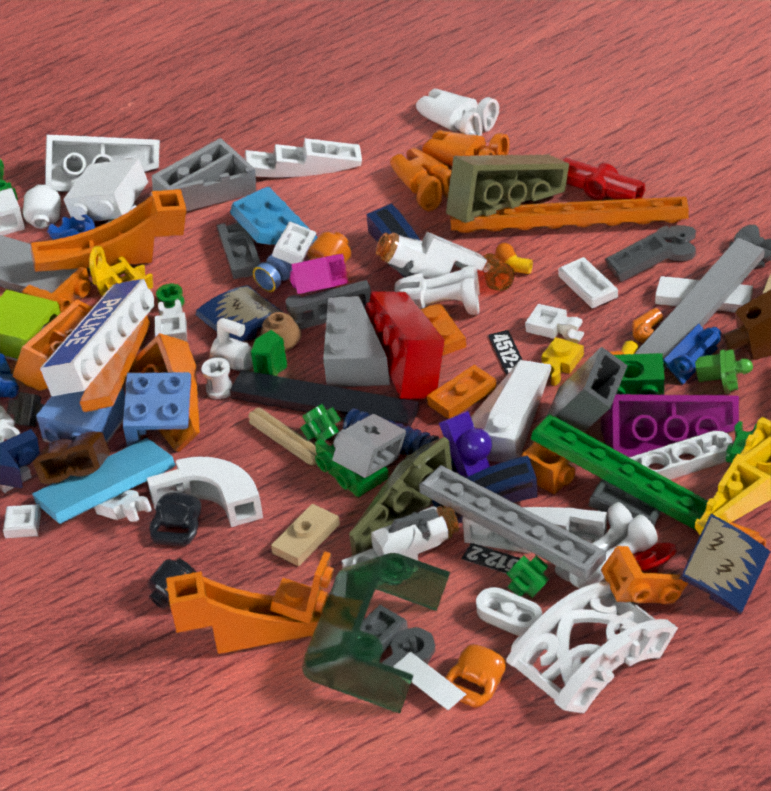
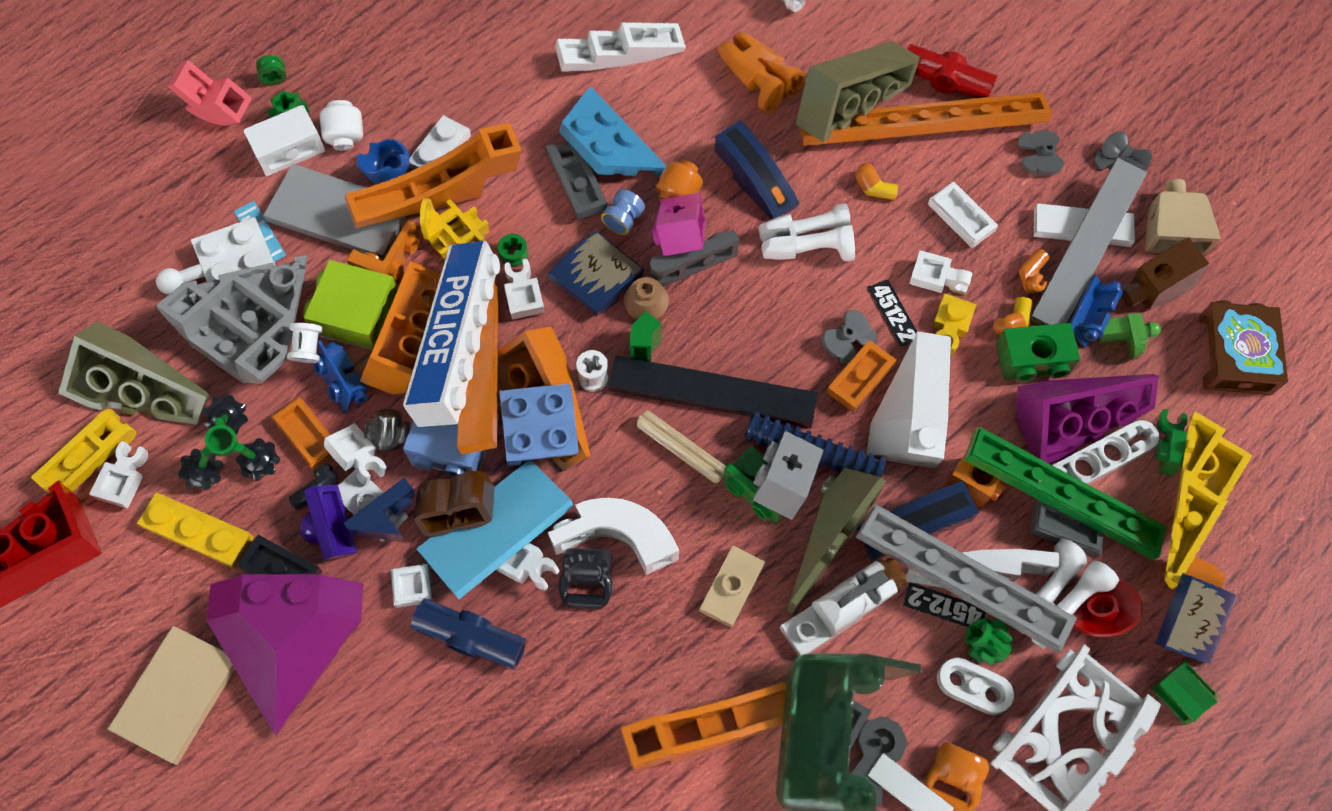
camera: 15 degrees left, 25 degrees up
(62, 551) = (468, 634): none -> dark blue piece
(70, 155) = (382, 57): white wedge -> none
(106, 190) = (412, 103): white brick -> none
(158, 584) = (604, 676): black head -> none
(208, 176) = (520, 83): light grey wedge -> none
(230, 349) = (601, 330): white piece -> none
(294, 243) = (643, 181): white plate -> none
(300, 600) = (767, 708): orange bracket -> none
(320, 423) = (720, 433): green gear -> none
(352, 347) = (732, 318): light grey wedge -> none
(408, 341) = (794, 315): red wedge -> none
(431, 256) = (794, 194): white plate -> none
(446, 327) = (816, 284): orange plate -> none
(448, 144) = (796, 32): orange piece -> none
(461, 359) = (838, 341): none -> dark grey piece
(467, 444) = (896, 467): dark purple tile -> none
(497, 273) = (863, 203): clear orange cone -> none
(589, 390) = (1009, 394): dark grey brick -> none
(632, 585) = (1106, 653): orange bracket -> none
(639, 256) = (1009, 177): dark grey plate -> none
(709, 628) = (1185, 692): none -> green piece

